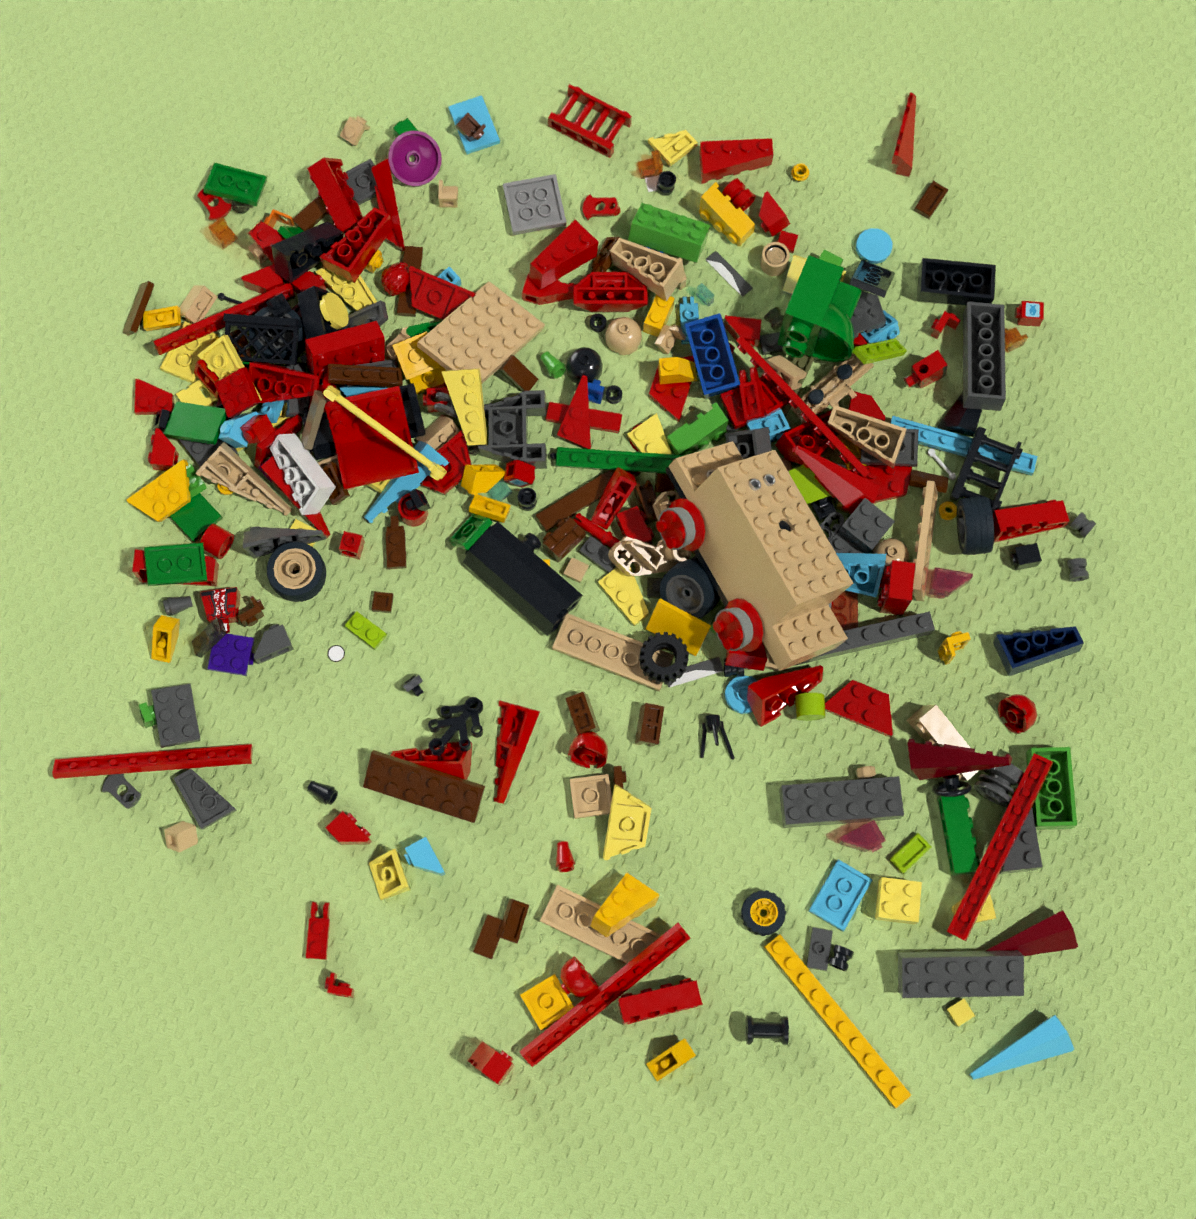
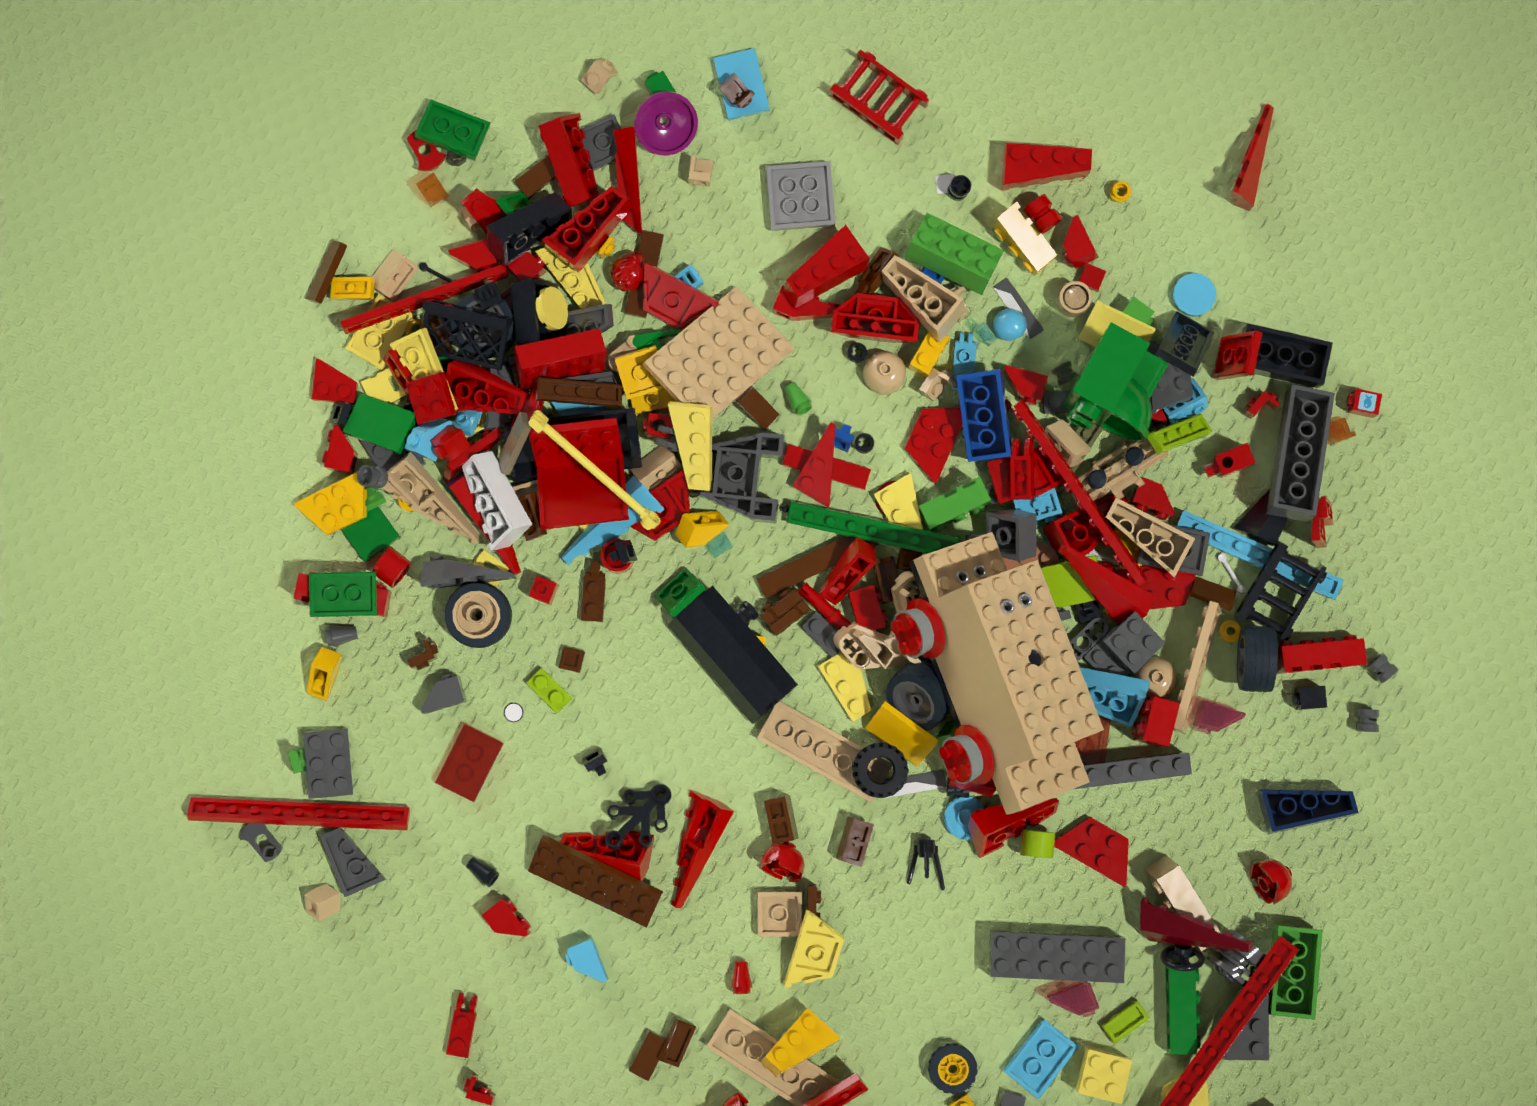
camera: 10 degrees right, 10 degrees up
(192, 463) = (372, 476): none -> dark grey wheel
(209, 637) = (372, 680): clear smoke plate -> none
(222, 605) = (390, 645): torso -> none
(232, 655) = (396, 701): dark purple piece -> none
(277, 216) = (488, 181): orange bracket -> none
(301, 700) = (469, 763): none -> clear red tile
(389, 875) = (546, 974): light yellow slope -> none
(489, 508) = (705, 565): yellow plate -> none
(519, 473) = (744, 528): red brick -> none
(527, 495) = (749, 559): black wheel -> none
(576, 570) = (794, 649): tan tile -> none
(584, 362) = (834, 403): black cylinder -> none
(611, 207) = (866, 203): red piece -> none
(651, 167) = (943, 163): clear orange panel -> none
(653, 587) = (881, 679): clear smoke plate -> none
(673, 146) = (974, 140): light yellow wing -> none
(676, 370) = (940, 427): yellow slope -> none
(723, 285) = (1009, 324): none -> medium azure hair
(865, 772) = (1089, 926): tan tile -> none
(918, 283) = (1237, 355): none -> red tile
(931, 200) = (1270, 244): reddish brown tile -> none
(951, 644) = (1201, 796): yellow bracket -> none
(1011, 410) = (1323, 518): none -> red slope

